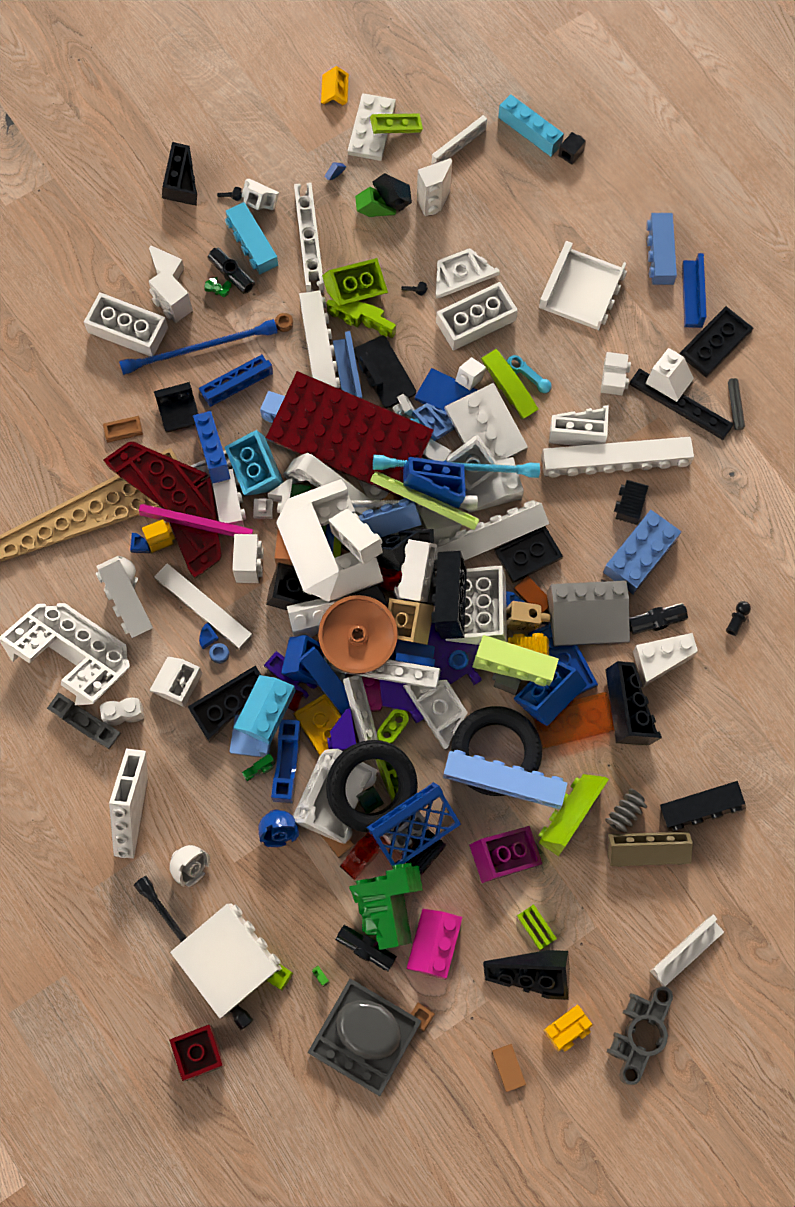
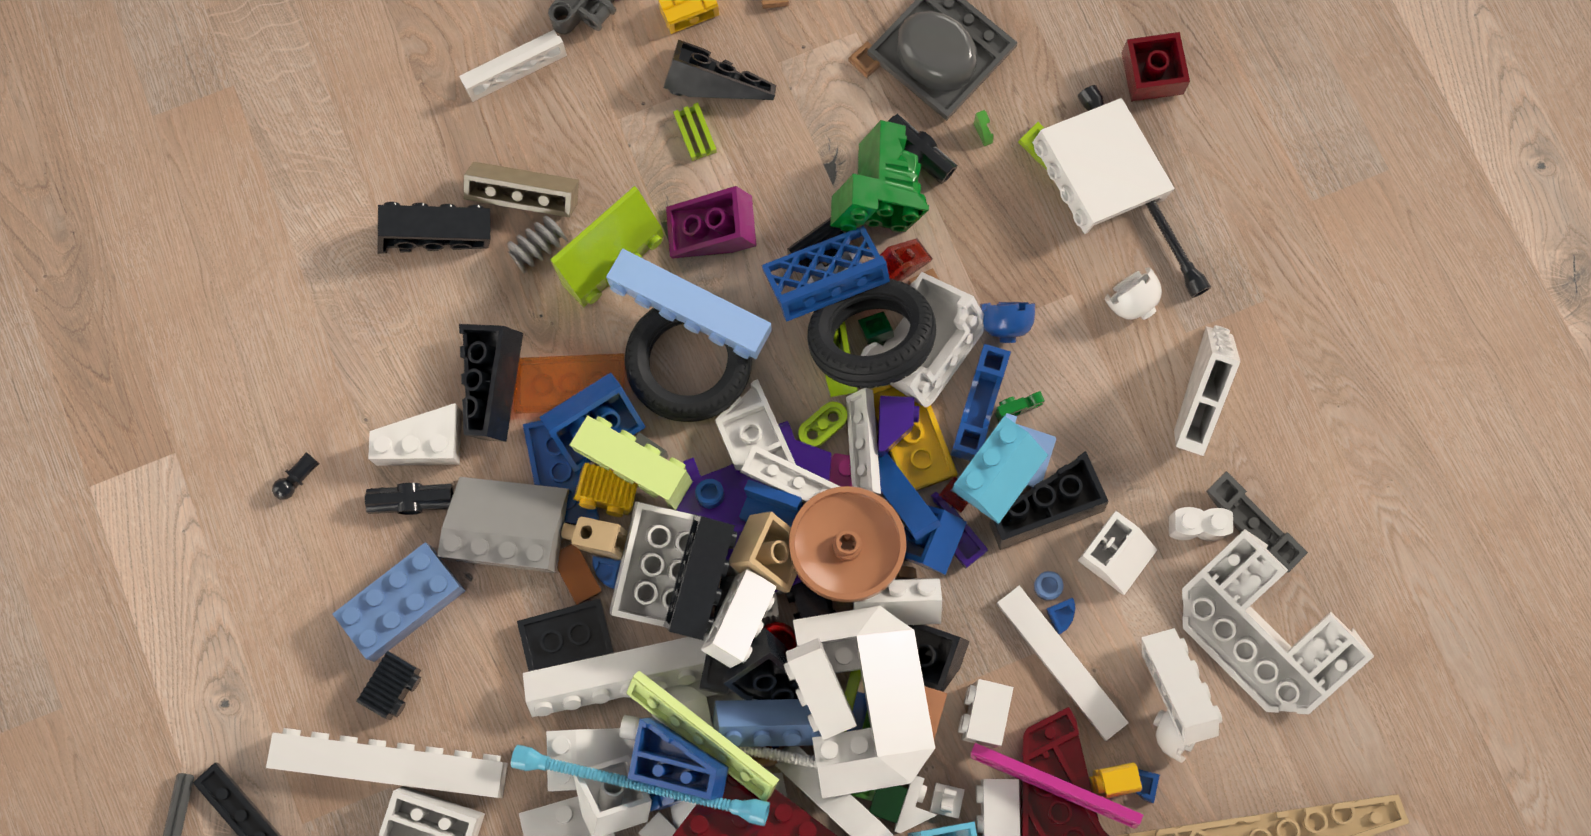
camera: 165 degrees left, 5 degrees up
(434, 943) = (829, 135): dark pink slope -> none

